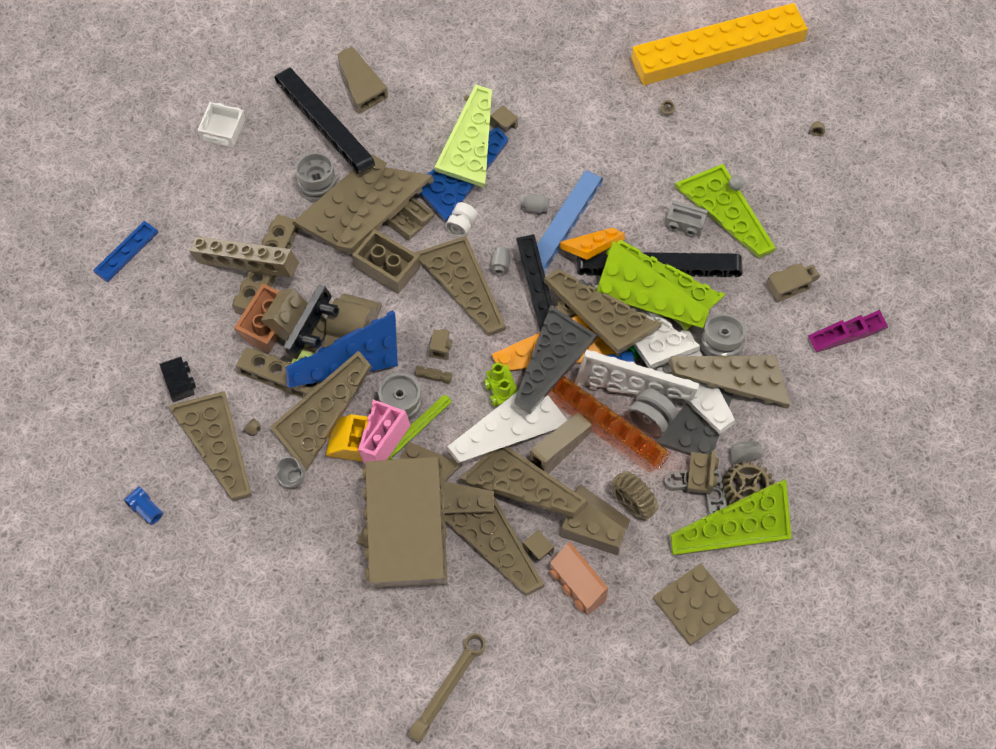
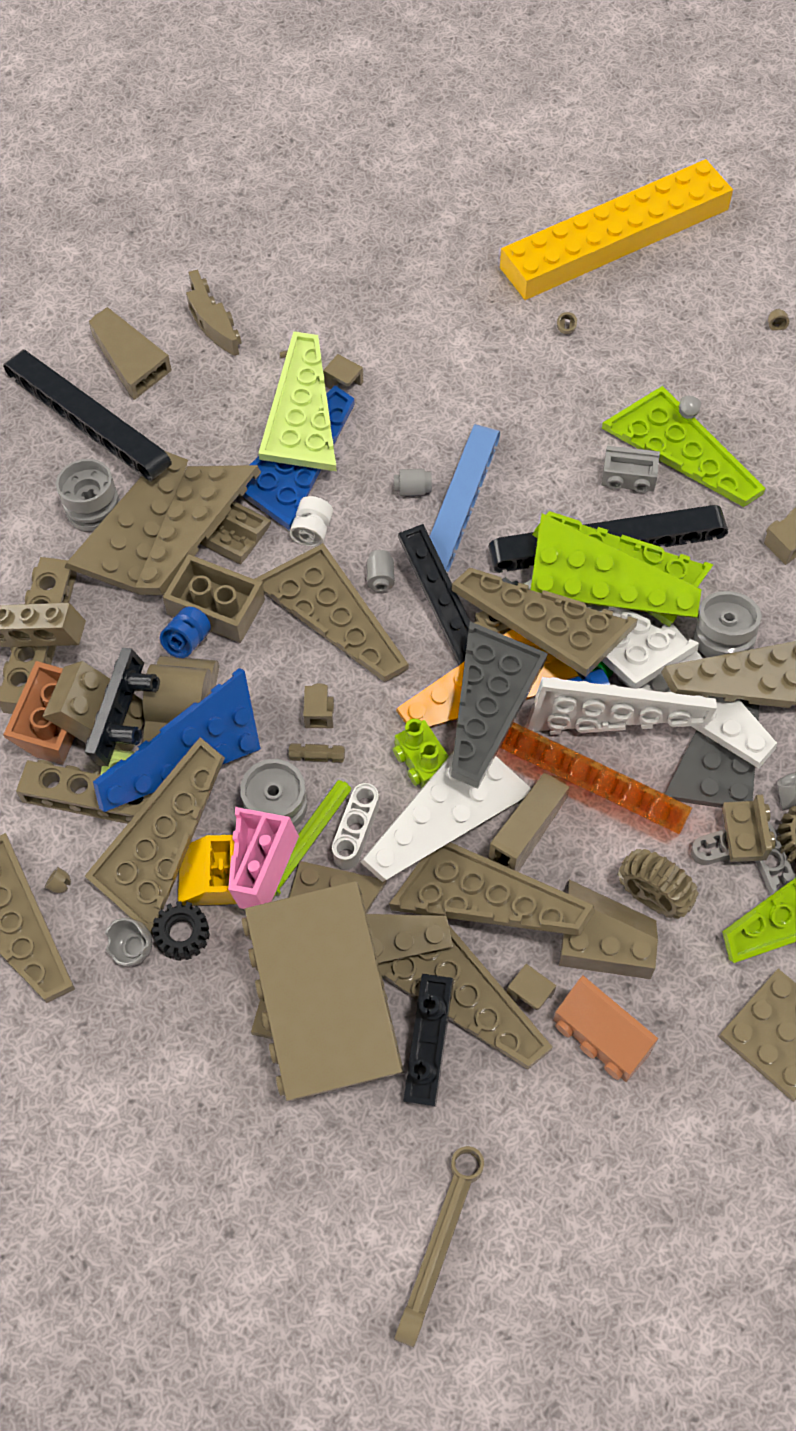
camera: 10 degrees left, 0 degrees up
(319, 462) = (169, 918): none -> black tyre
(362, 280) = (185, 632): none -> blue wheel
(421, 63) = (211, 316): none -> dark tan slope
(449, 417) = (355, 813): none -> white beam
(466, 565) = (428, 1040): none -> black plate
(593, 243) = (507, 525): light orange wing -> none
(652, 413) = (653, 754): light grey wheel -> none

